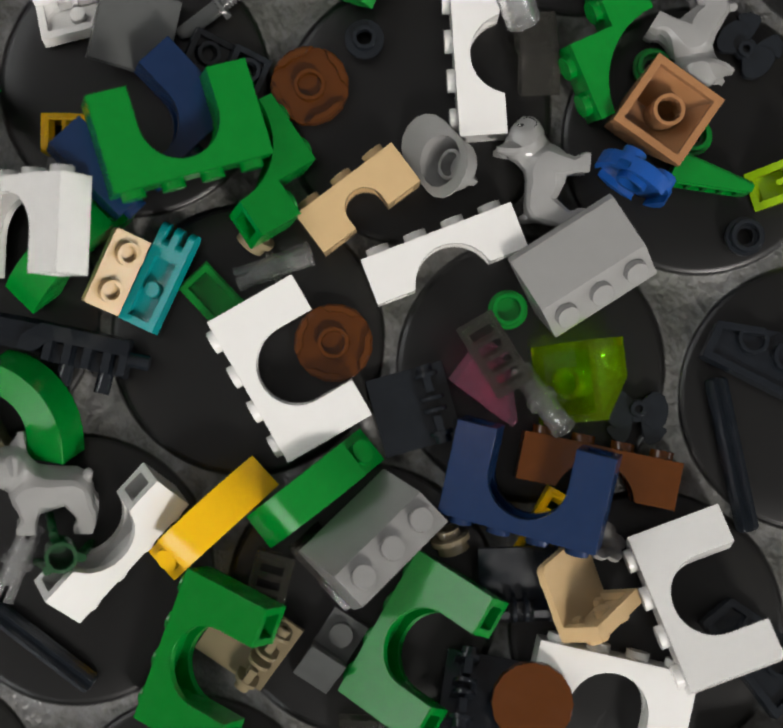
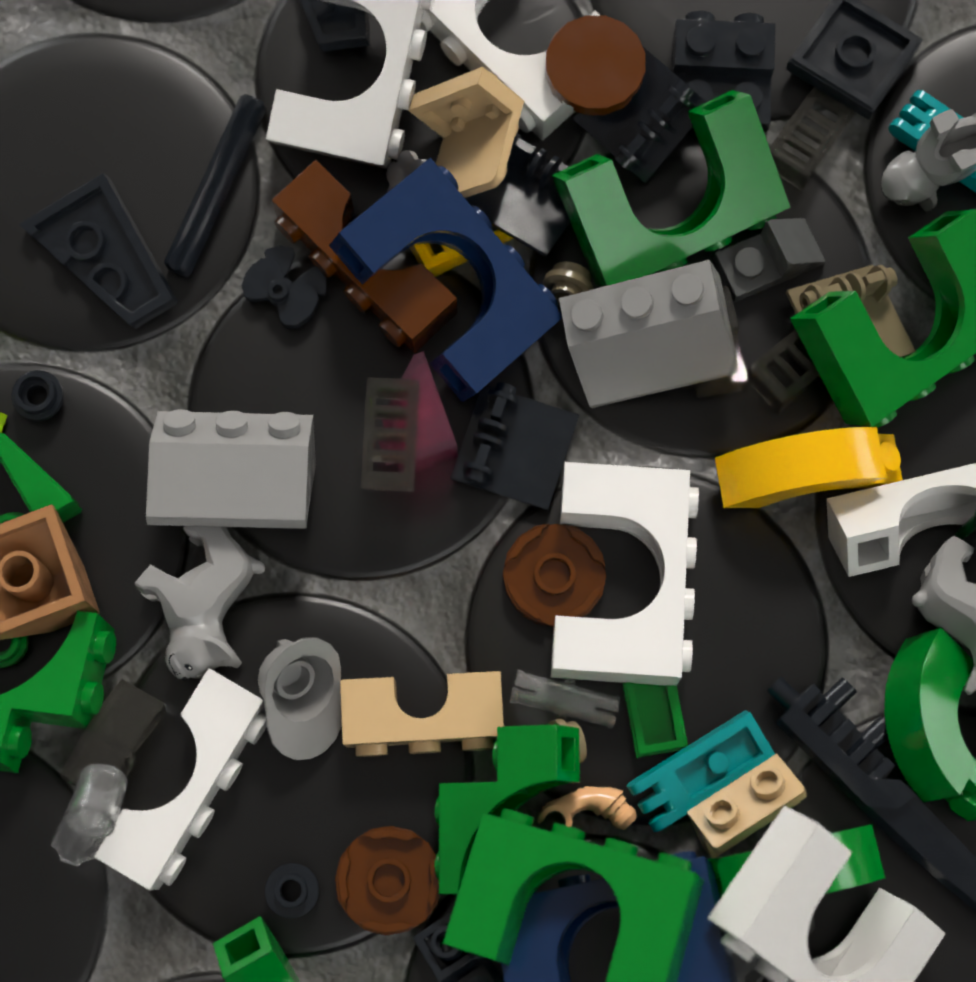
camera: 145 degrees left, 10 degrees down
(210, 219) = (600, 800): none -> light nougat piece
(315, 488) = (676, 422): green arch -> none
(490, 234) = (434, 604): white arch -> none
(509, 308) = (341, 485): green plate -> none
(544, 402) = (372, 350): clear pin -> none
(584, 375) = (318, 358): clear neon green slope -> none
(630, 174) = (106, 532): blue plate -> none

